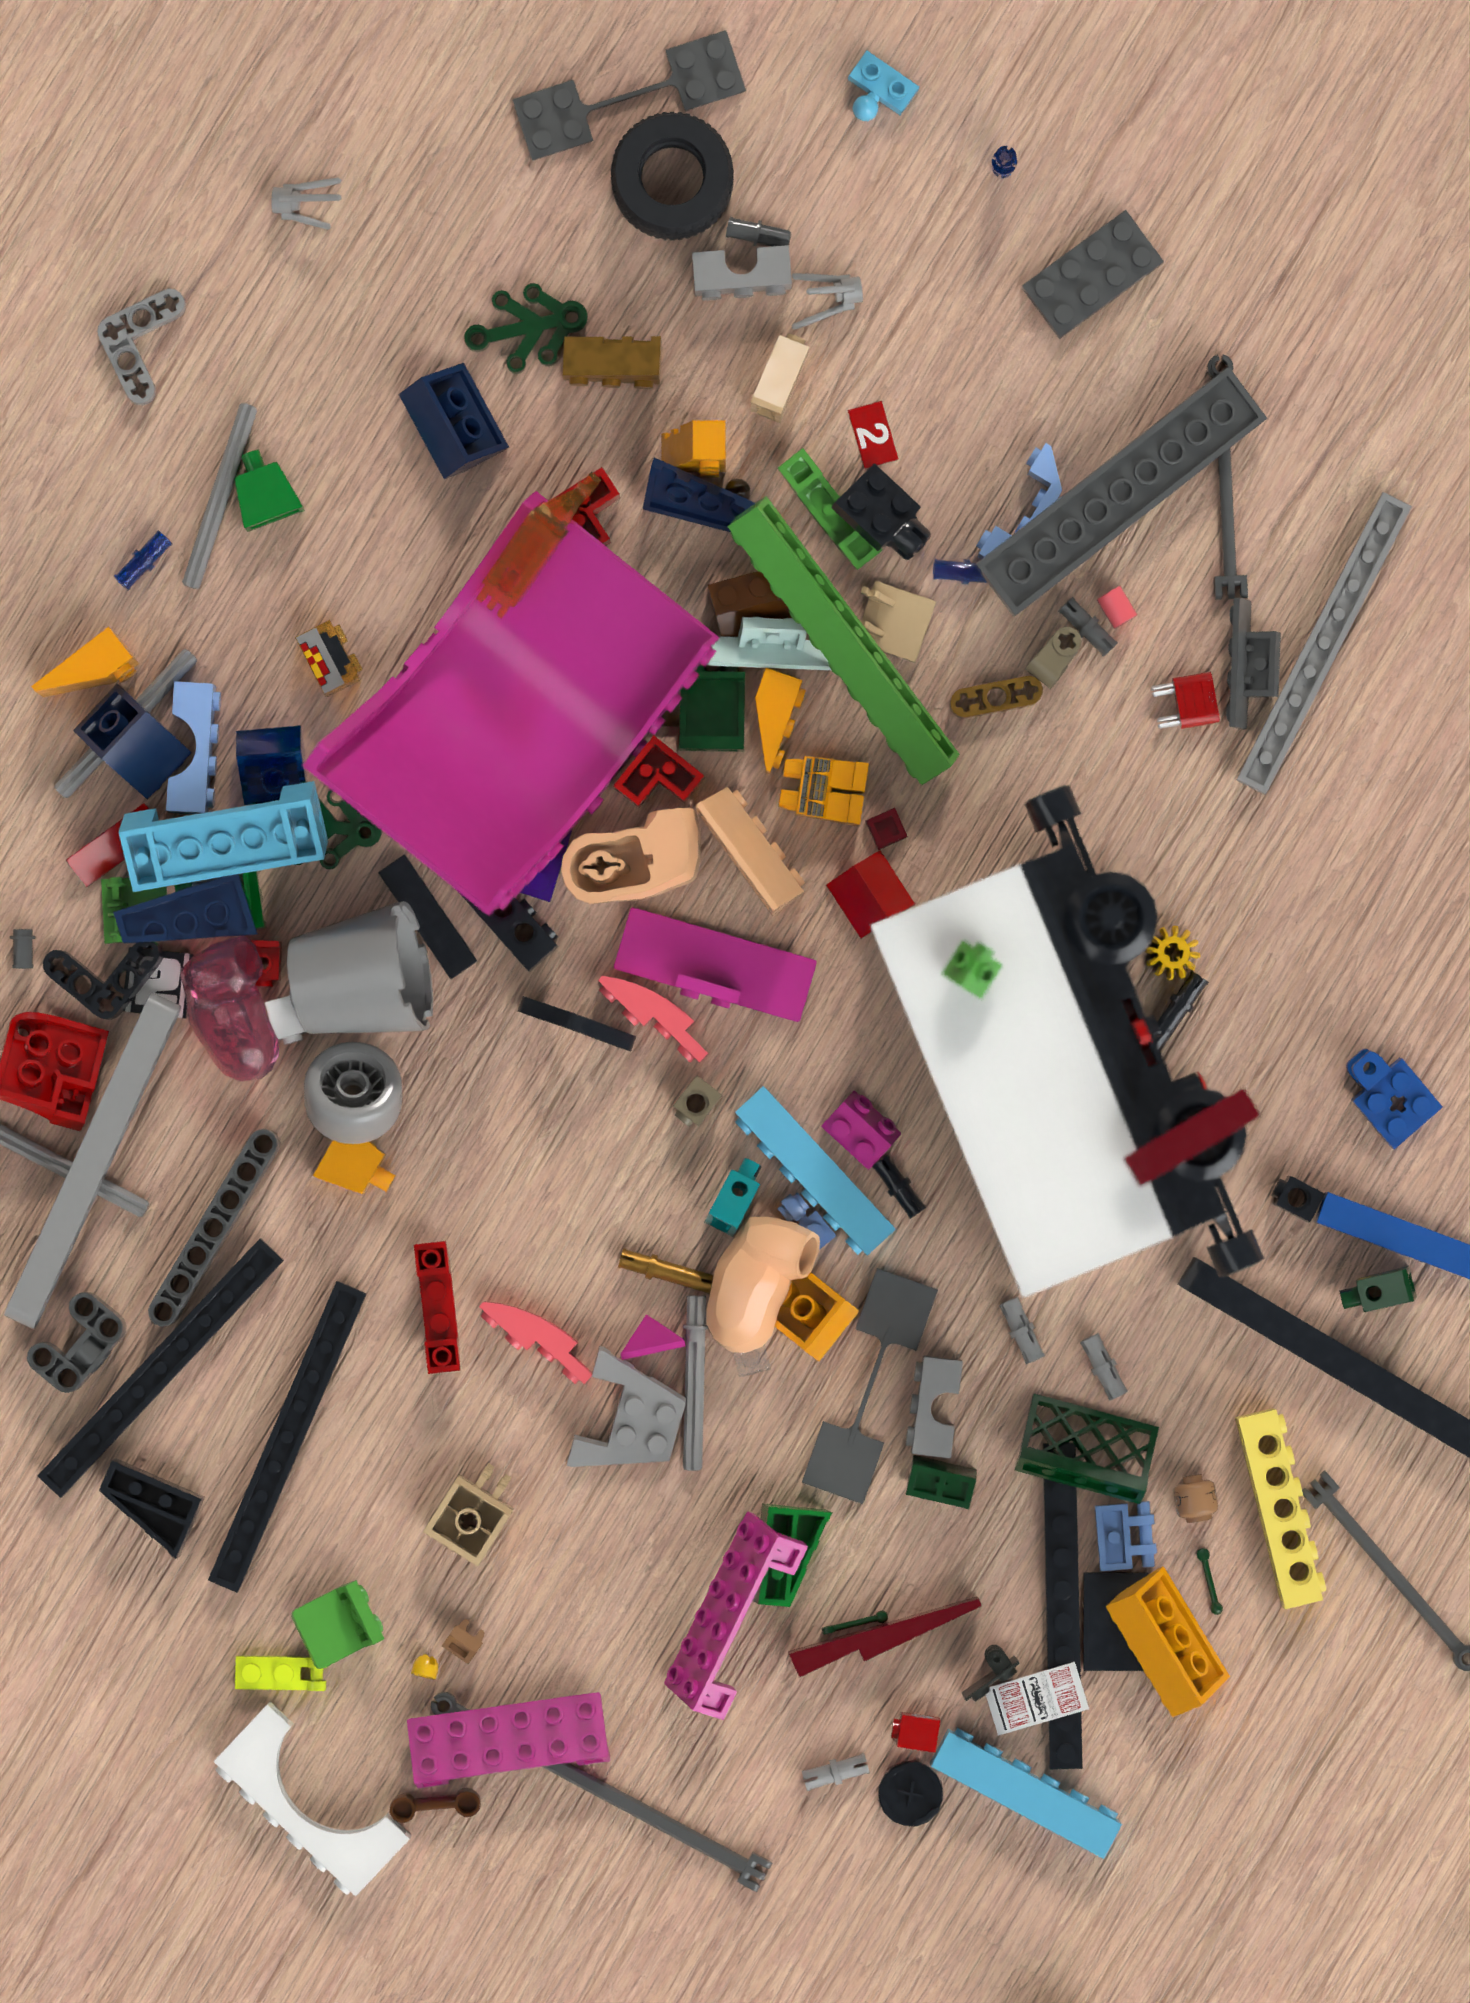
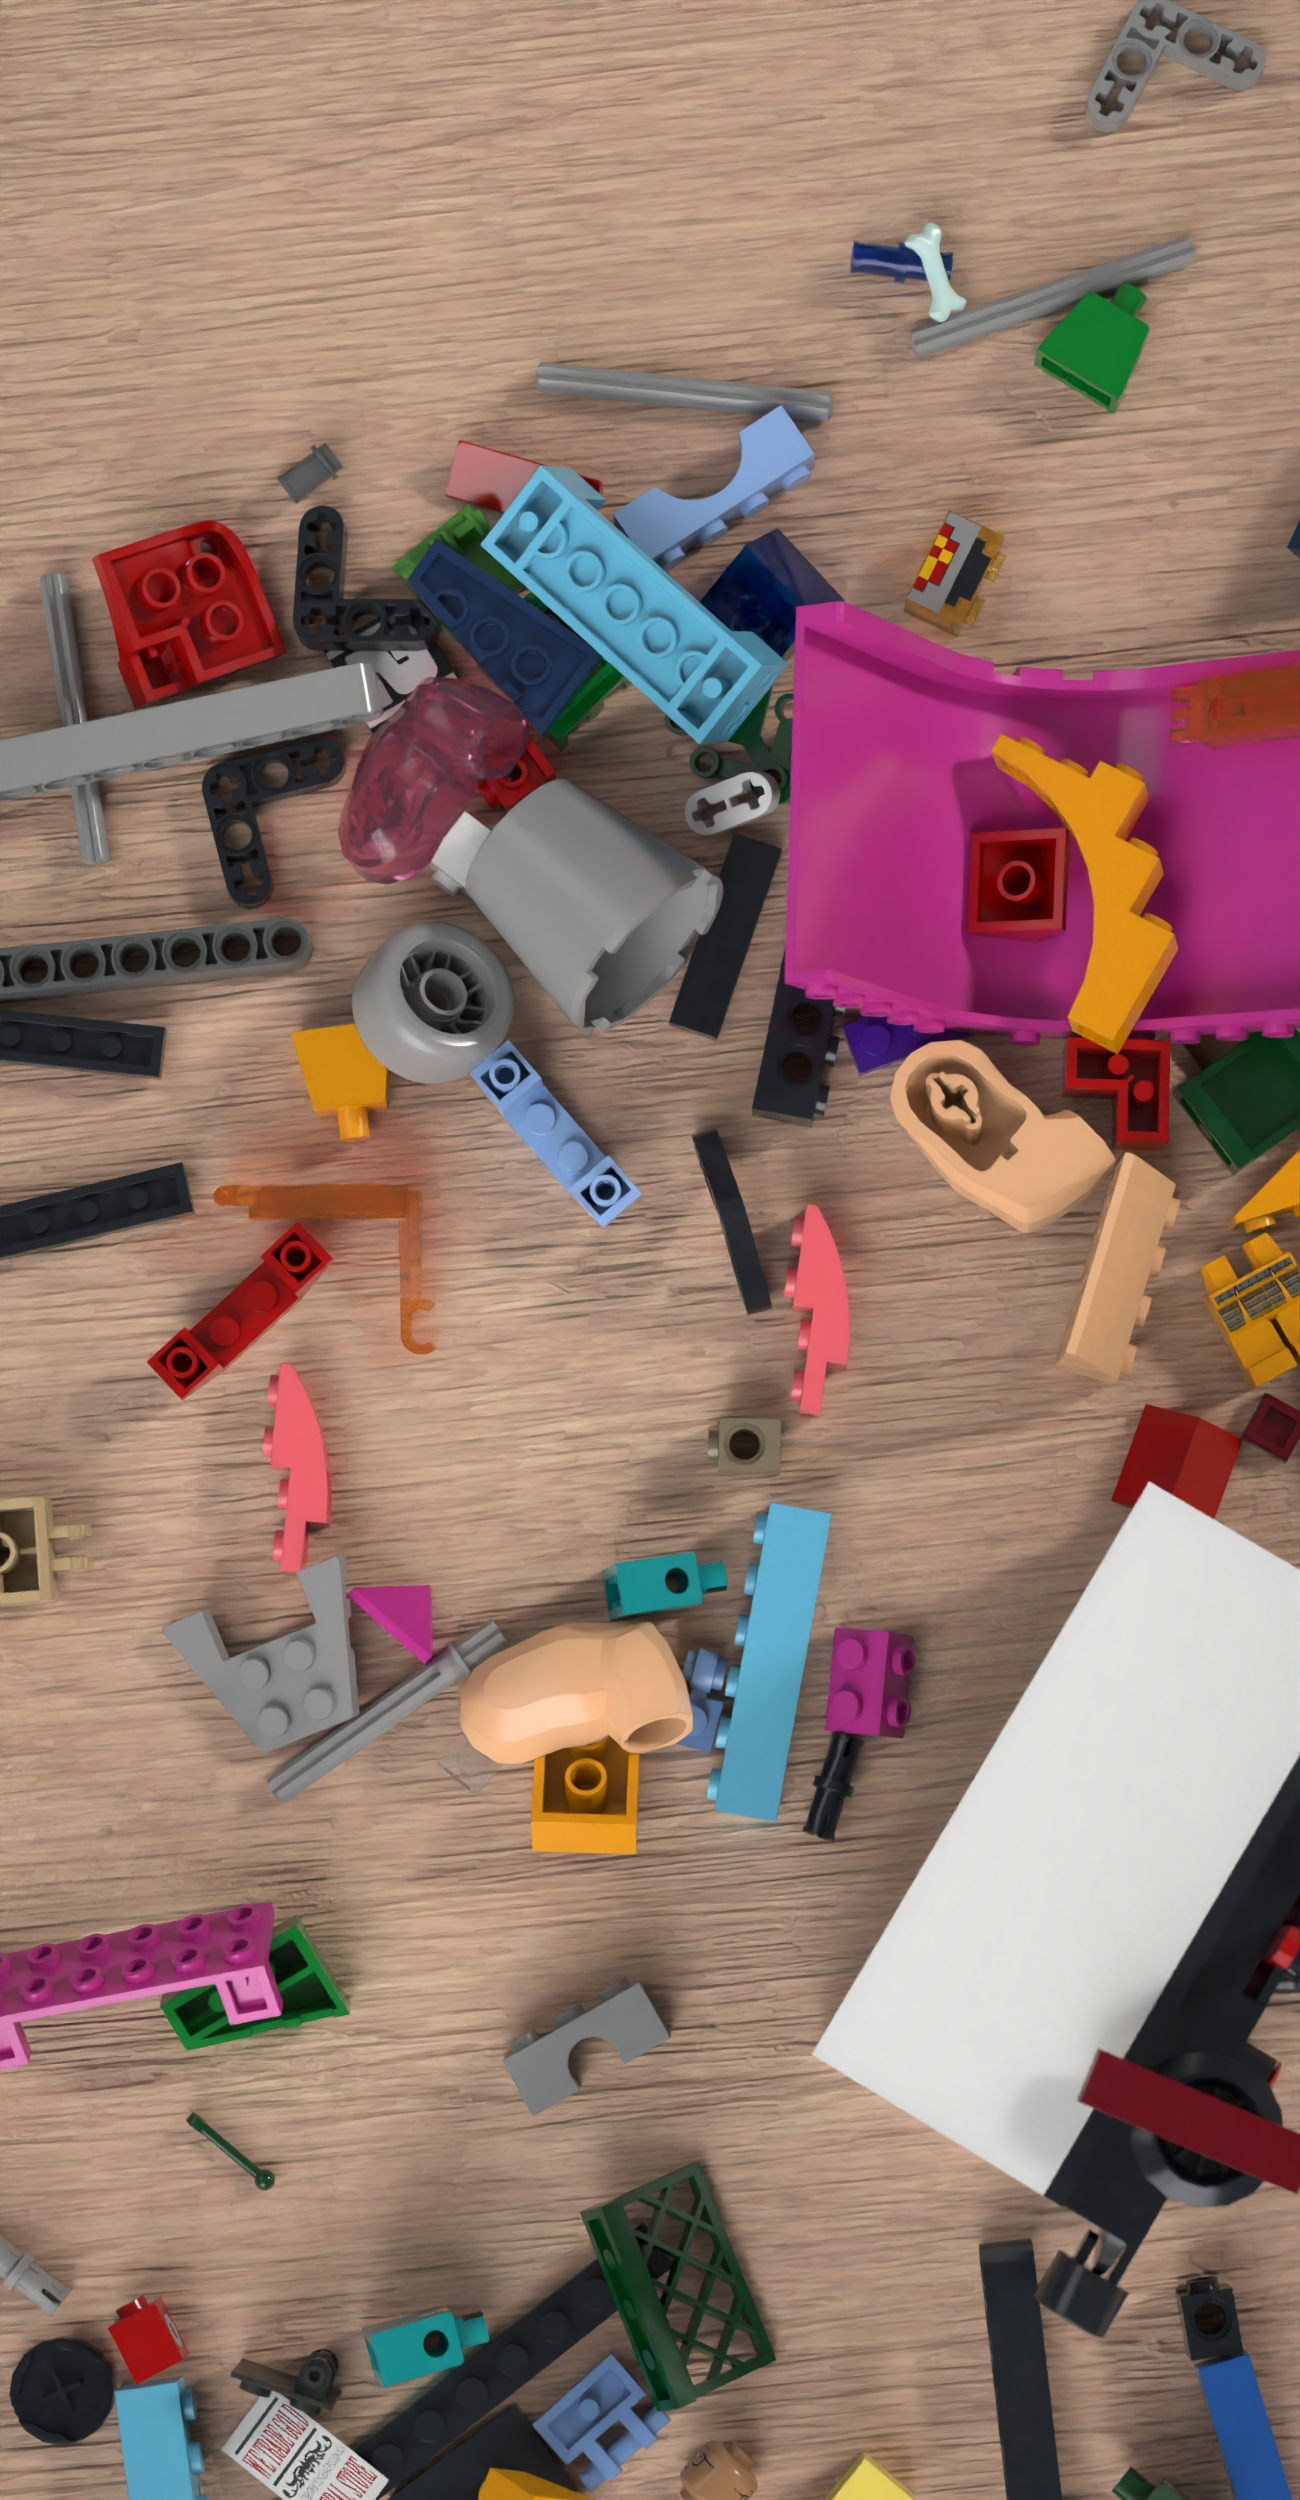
camera: 60 degrees right, 5 degrees down
(93, 665) = (724, 291): light orange slope -> none
(132, 741) = (666, 411): dark blue slope -> none
(169, 1103) = (253, 794): none -> black beam
(178, 553) = (943, 296): none -> light aqua piece
(355, 860) = (736, 813): none -> white beam
(420, 1213) = (350, 1202): none -> clear orange hinge
(466, 1081) = (554, 1135): none -> light blue slope
(514, 749) = (1018, 884): none -> red slope
(592, 724) = (1126, 950): none -> light orange arch
(665, 1270) = (502, 1567): pearl gold pin -> none
(715, 965) = (937, 1340): dark pink bracket -> none
(844, 1457) = (433, 1976): dark grey hinge -> none
(878, 1638) = (233, 2197): dark red slope -> none
(941, 1482) = (494, 2127): dark green hinge -> none
(972, 968) = (1197, 1656): bright green brick -> none
(1017, 1610) = (398, 2348): none -> teal torso
(1021, 1330) = (767, 2085): light grey pin -> none
(1103, 1366) = (800, 2228): light grey pin -> none

